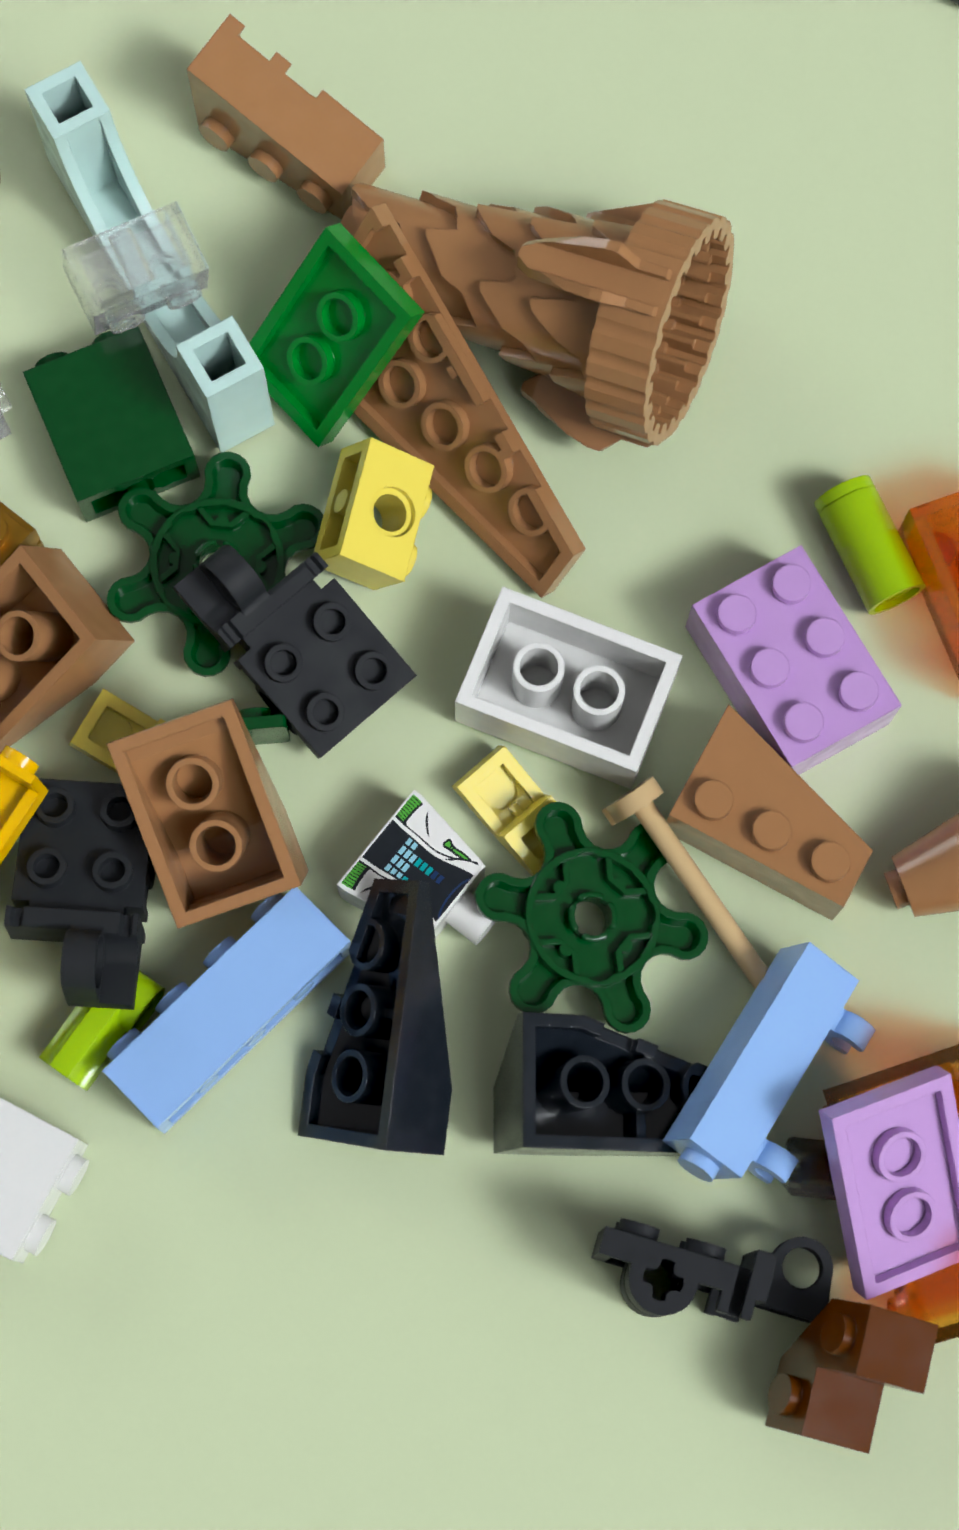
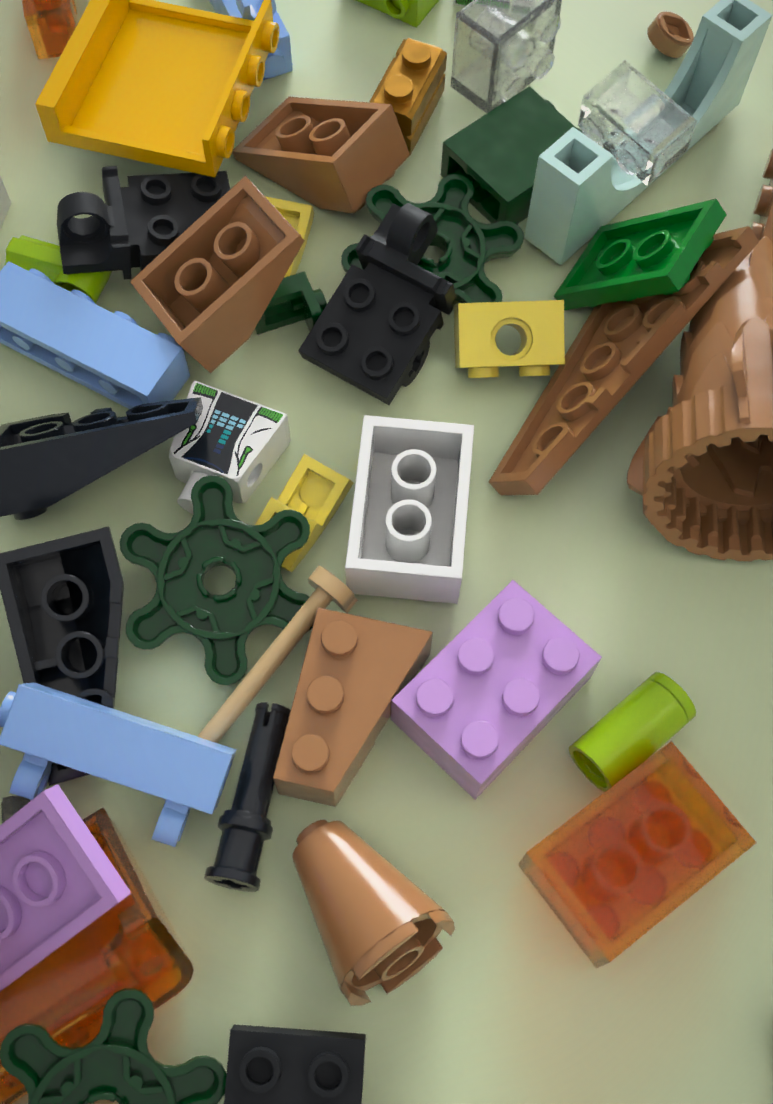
camera: 75 degrees right, 10 degrees down
(867, 956) = (247, 824): none -> black pin

